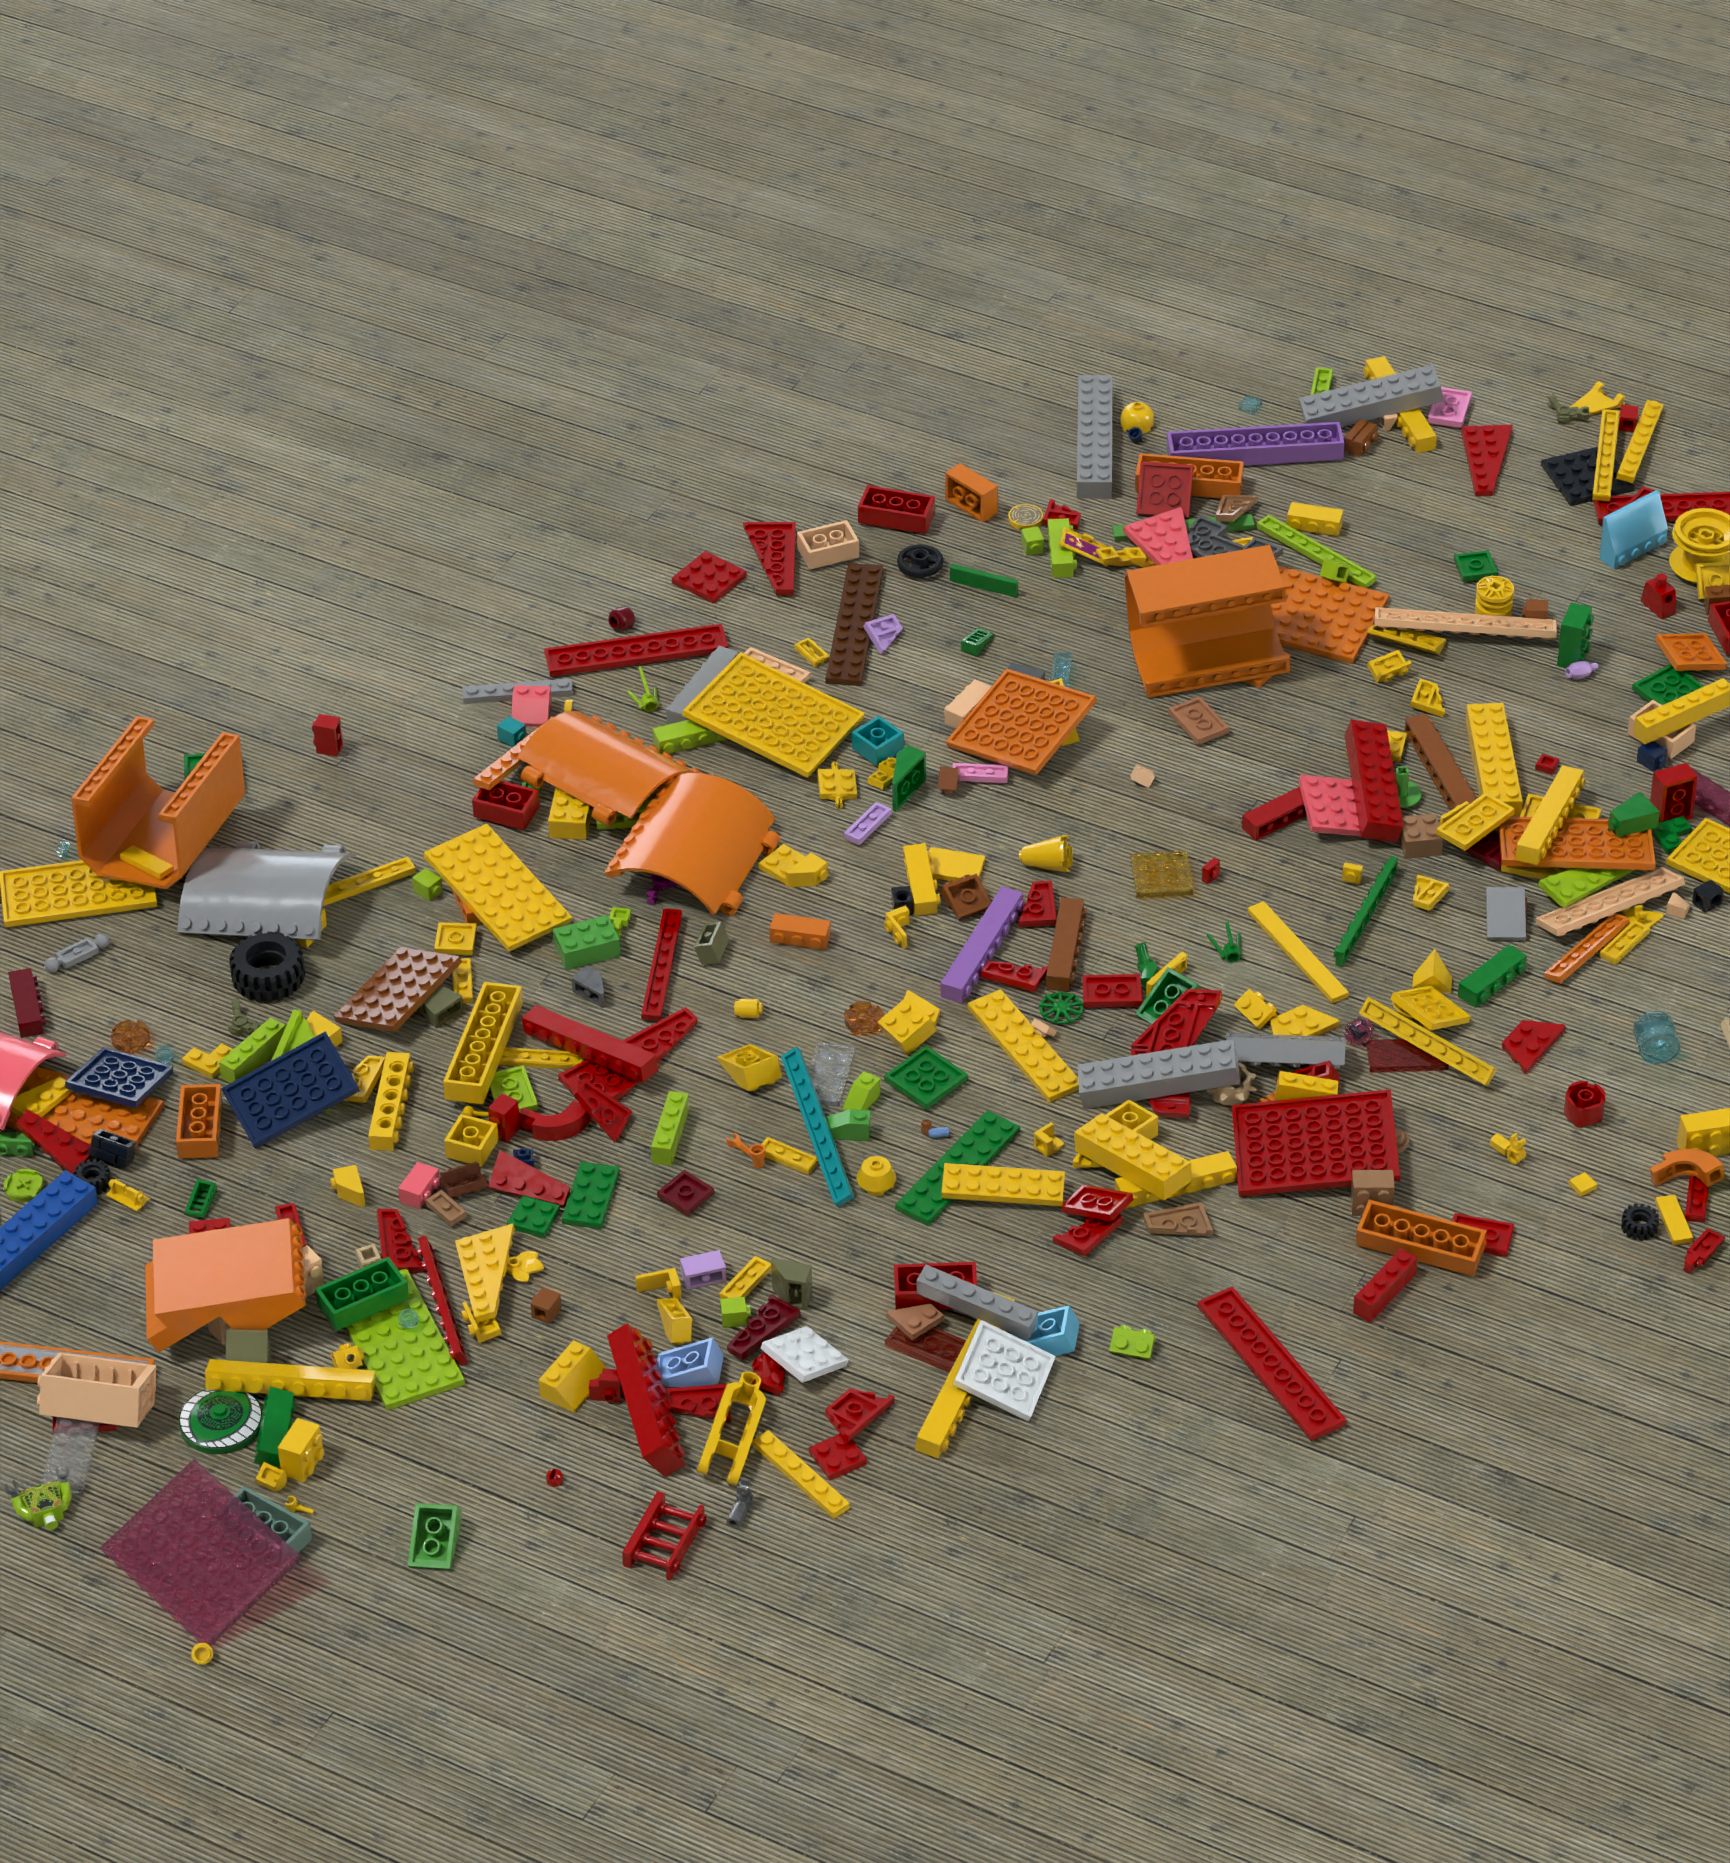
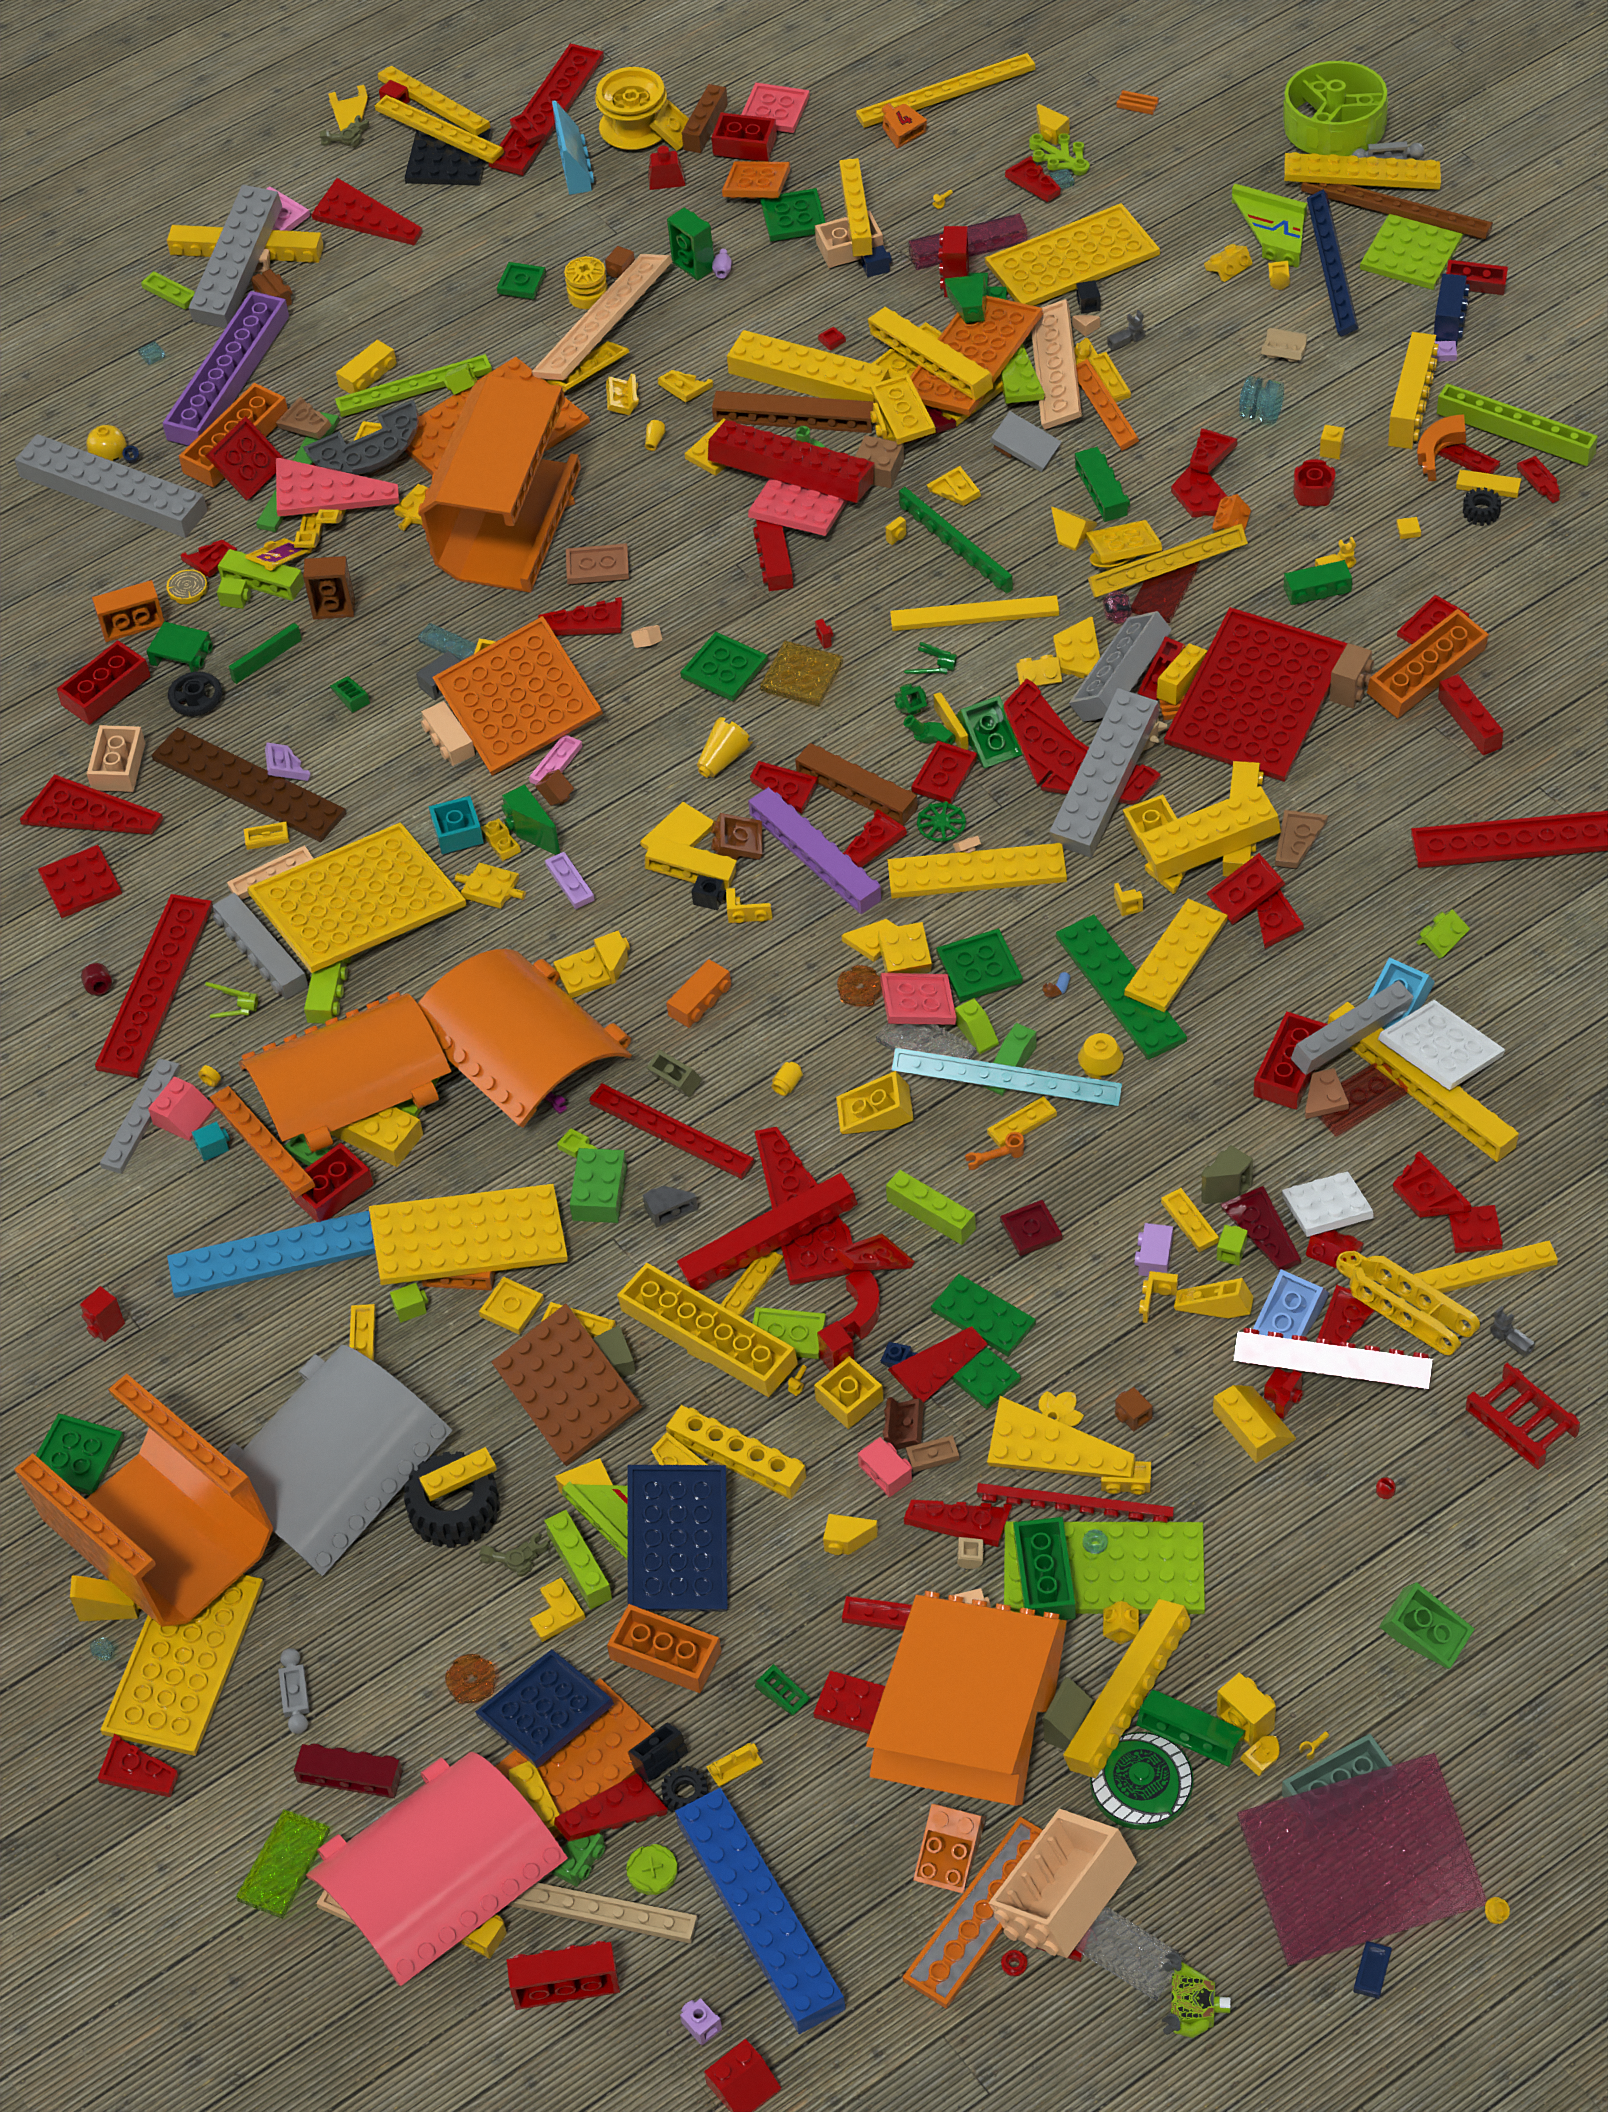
camera: 60 degrees left, 10 degrees up
(31, 1398) = (1014, 1956): none -> red plate
(114, 1329) = (949, 1847): none -> orange slope
(121, 1600) = (1372, 1970): none -> dark blue tile
(146, 862) = (205, 1562): yellow tile -> none
(164, 1054) = (522, 1647): clear light blue plate -> none
(278, 953) = (457, 1474): none -> yellow plate
(427, 796) = (271, 1254): none -> dark azure plate
(864, 1049) = (918, 998): none -> coral plate
(959, 535) = (181, 645): none -> green panel
(1059, 581) = (329, 587): none -> dark orange brick
(1134, 735) = (596, 619): none -> red wing
(1139, 828) = (724, 666): none -> green plate
(1171, 942) = (917, 699): none -> green brick
(1359, 701) = (654, 432): none -> yellow cone
(1473, 1144) = (1317, 582): none -> green brick
(1511, 1068) = (1231, 512): none -> orange bracket
(1582, 1030) = (1210, 450): none -> red wing
(1645, 1101) = (1332, 442): none -> yellow brick
(1687, 937) = (1133, 332): none -> flat silver bar

